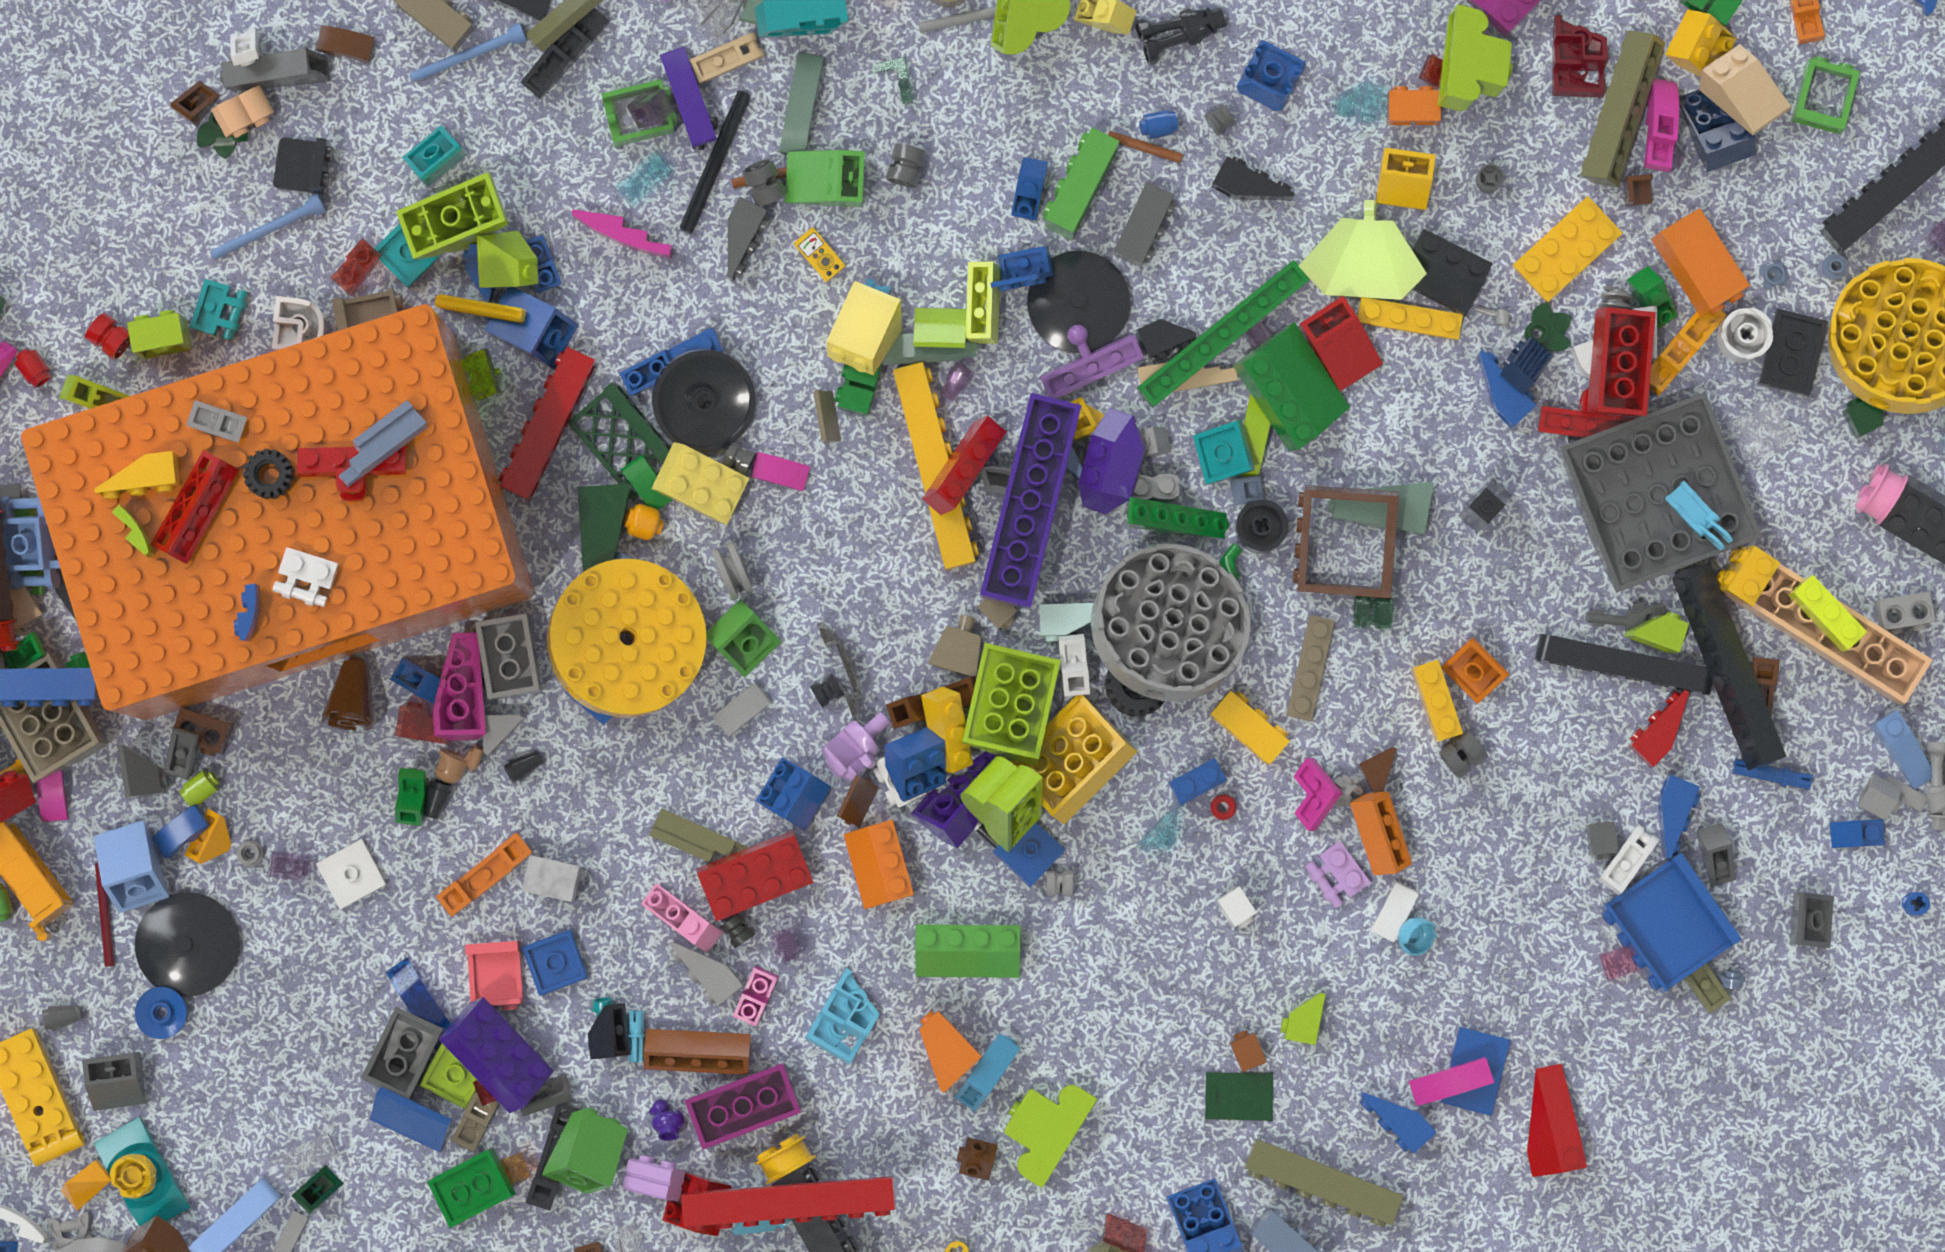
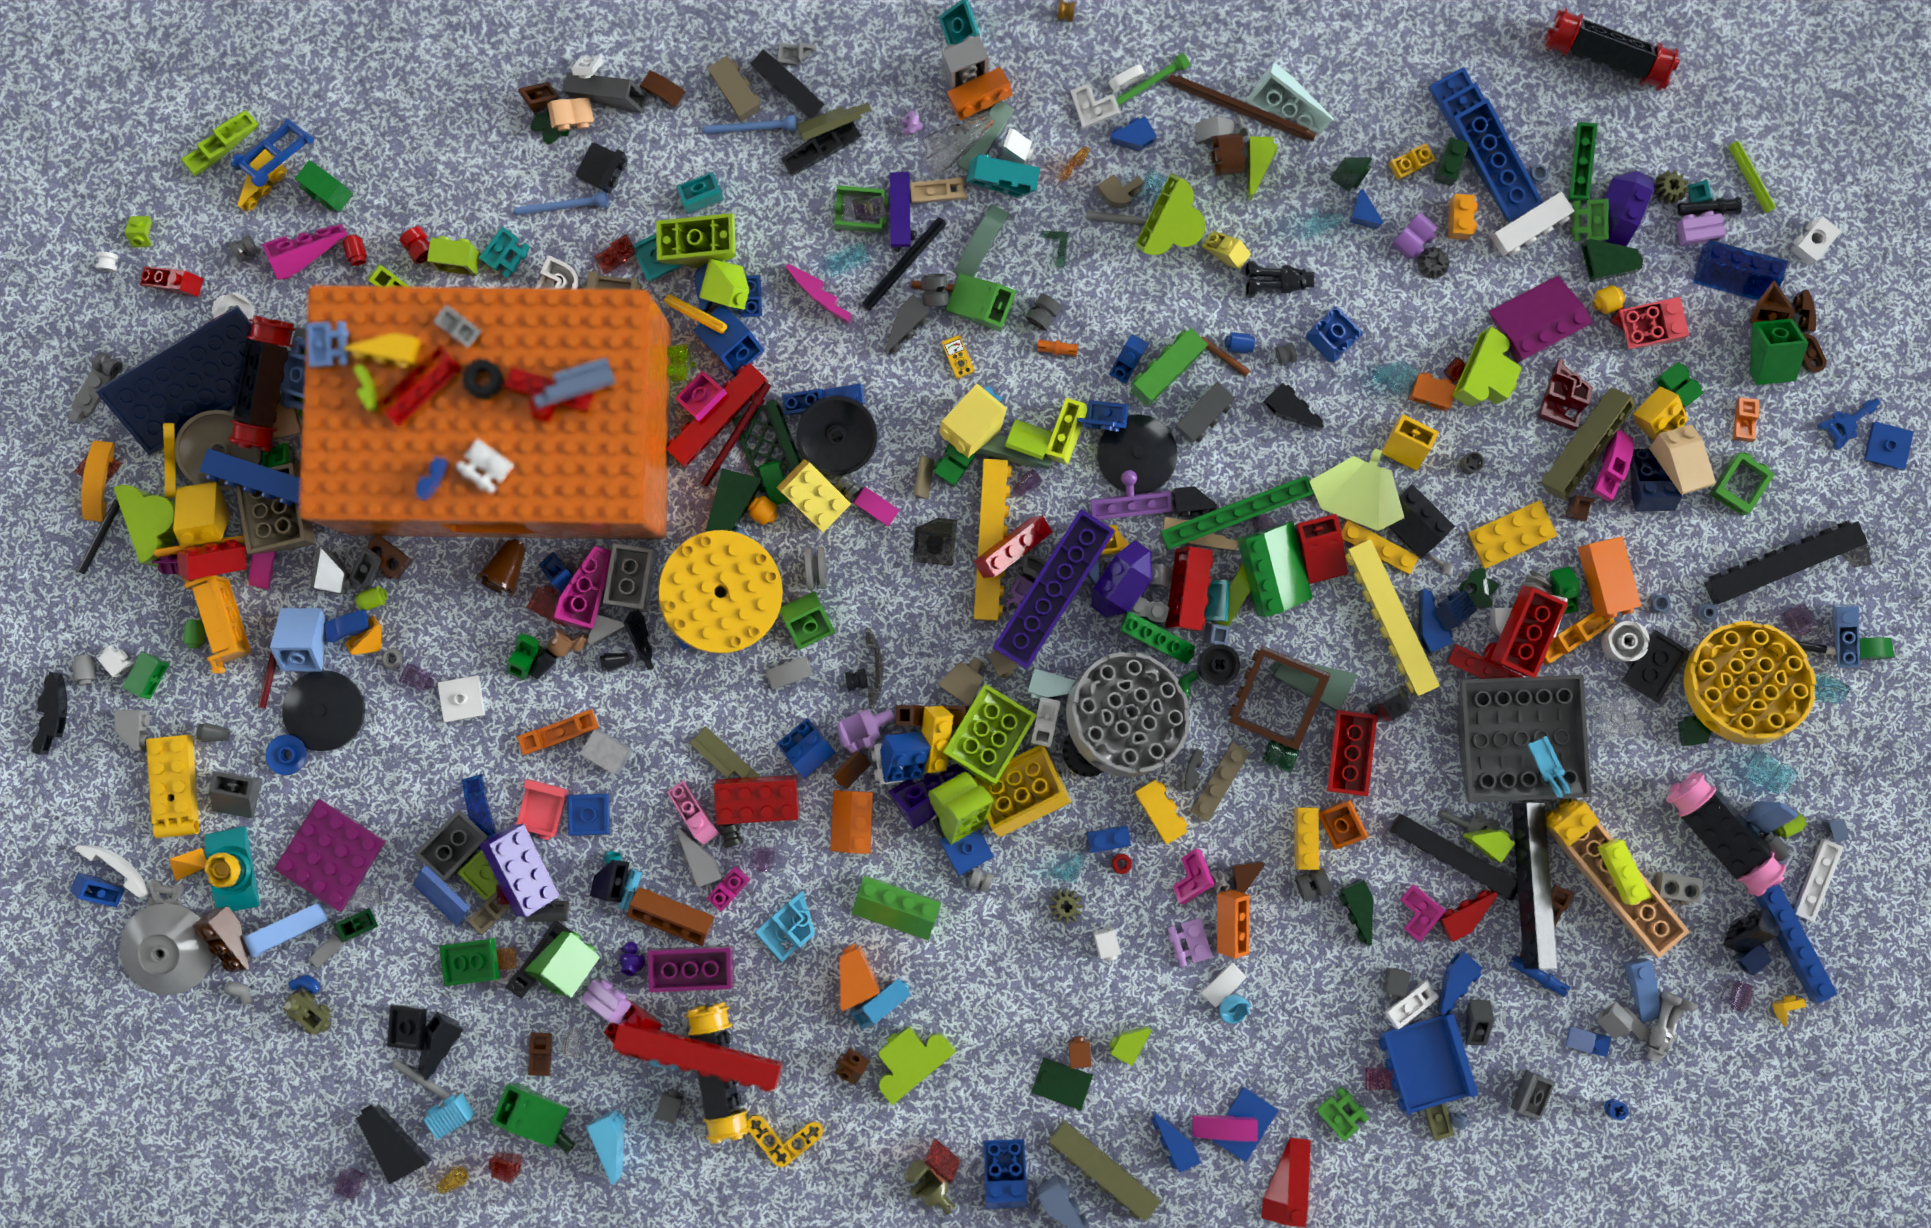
camera: 15 degrees right, 0 degrees up
(60, 495) = (320, 344): none -> medium blue plate
(256, 1116) = (330, 855): none -> magenta plate
(521, 407) = (700, 395): none -> dark pink plate
(543, 724) = (638, 633): none -> black piece
(592, 390) = (757, 400): none -> dark red bar
(867, 490) = (935, 542): none -> clear smoke slope
(937, 203) = (1057, 347): none -> orange pin
(989, 515) = (1019, 589): none -> medium lavender plate
(1176, 871) = (1061, 911): none -> olive gear
(1195, 446) = (1189, 588): none -> red slope
(1274, 673) = (1192, 777): none -> dark grey slope
(1453, 399) = (1392, 618): none -> light yellow brick
(1457, 580) = (1352, 753): none -> red slope
(1527, 759) = (1360, 905): none -> dark green slope
(1583, 1025) = (1338, 1118): none -> bright green plate
(1611, 744) = (1426, 911): none -> dark pink plate

